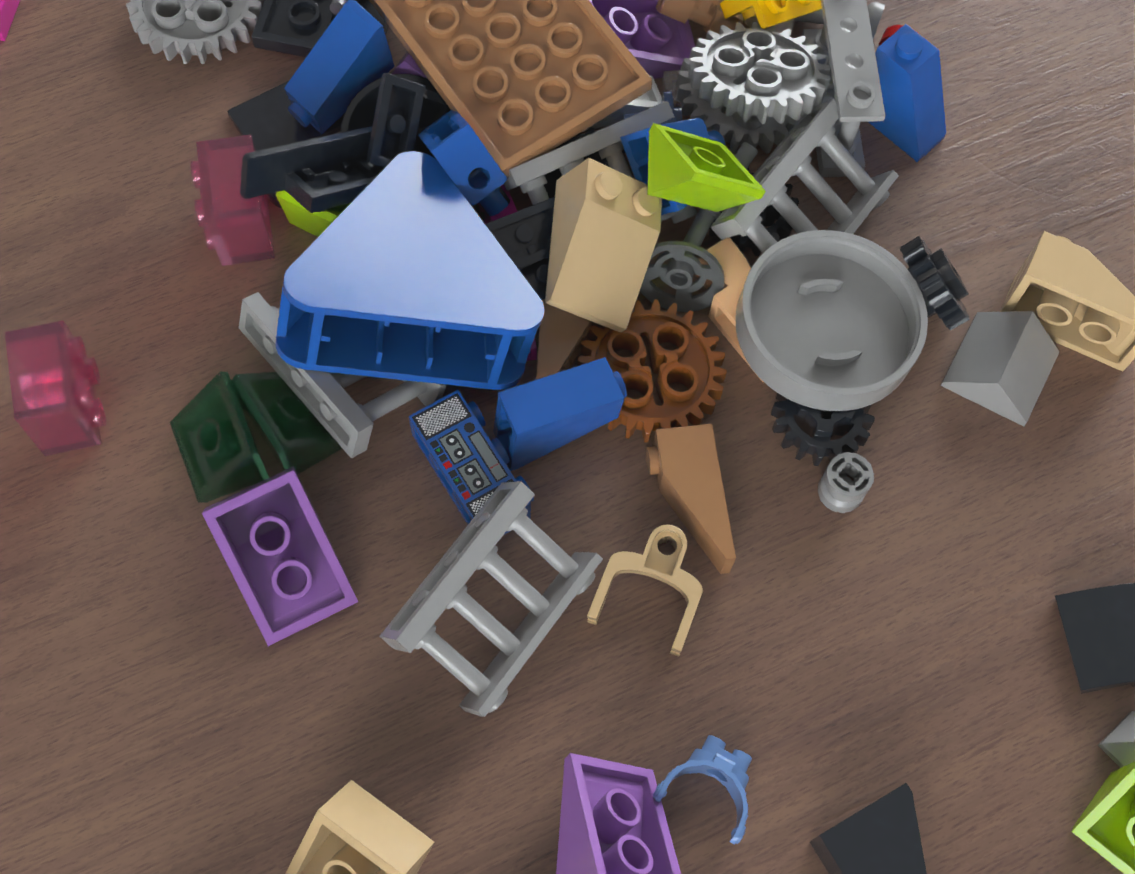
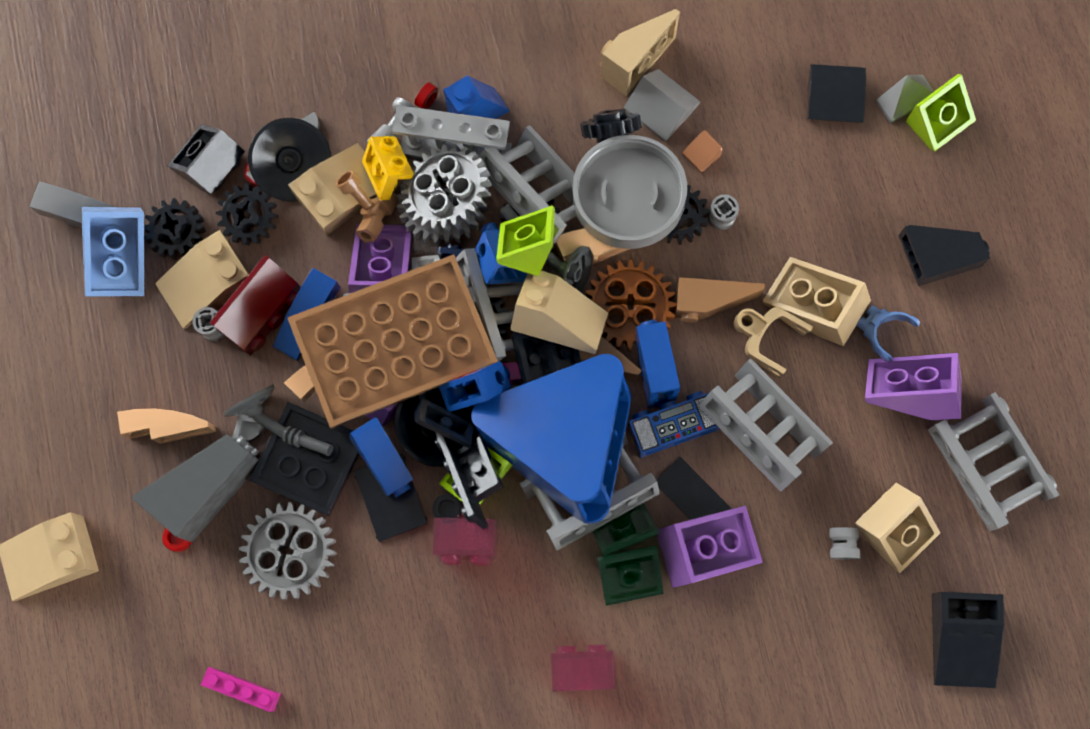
camera: 70 degrees left, 10 degrees up
(313, 771) = (847, 550): none -> light grey wheel
(369, 518) = (690, 491): none -> black sticker
(734, 663) = (819, 298): none -> tan slope
(940, 438) = (703, 151): none -> nougat slope

